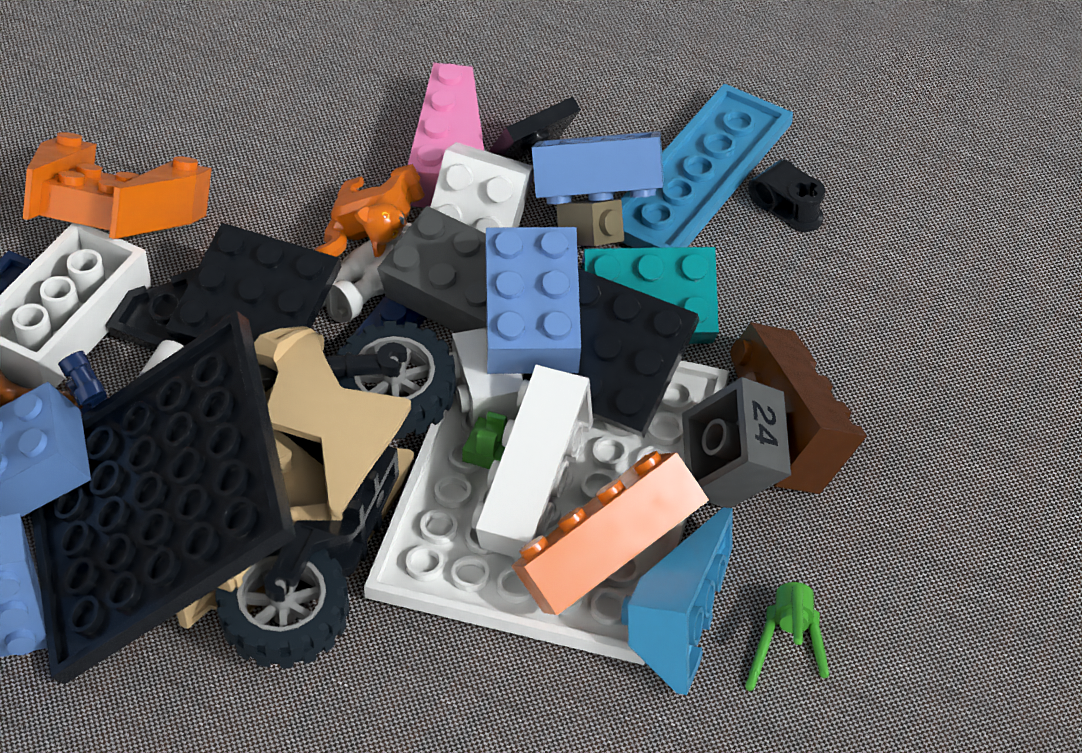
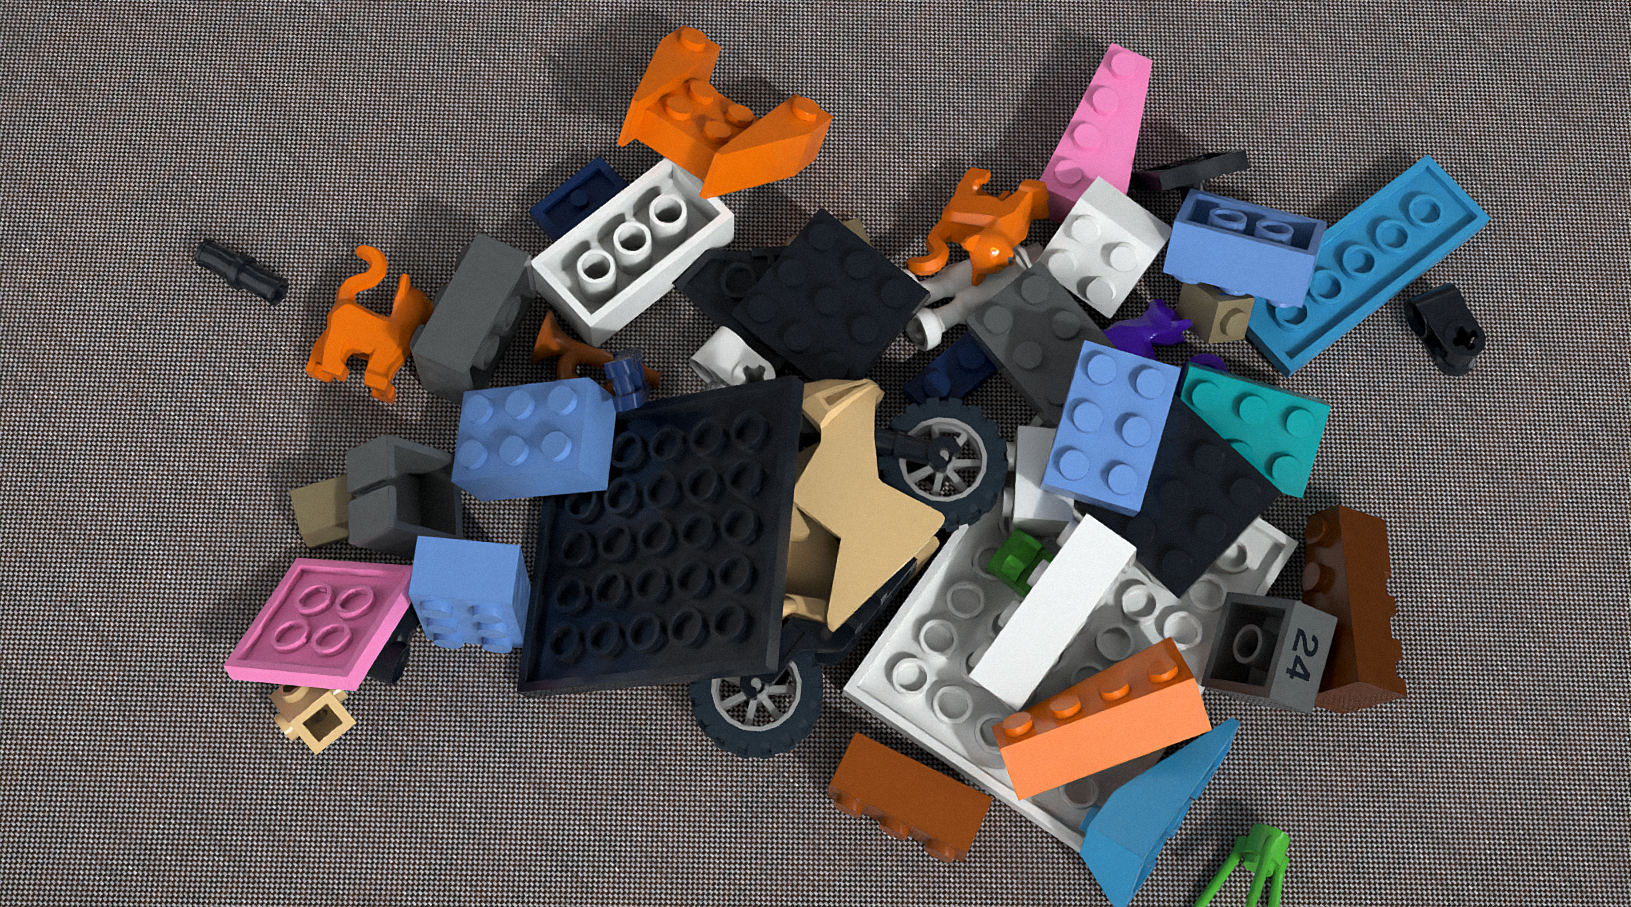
camera: 15 degrees right, 20 degrees up
(455, 656) = (908, 798): none -> dark orange brick

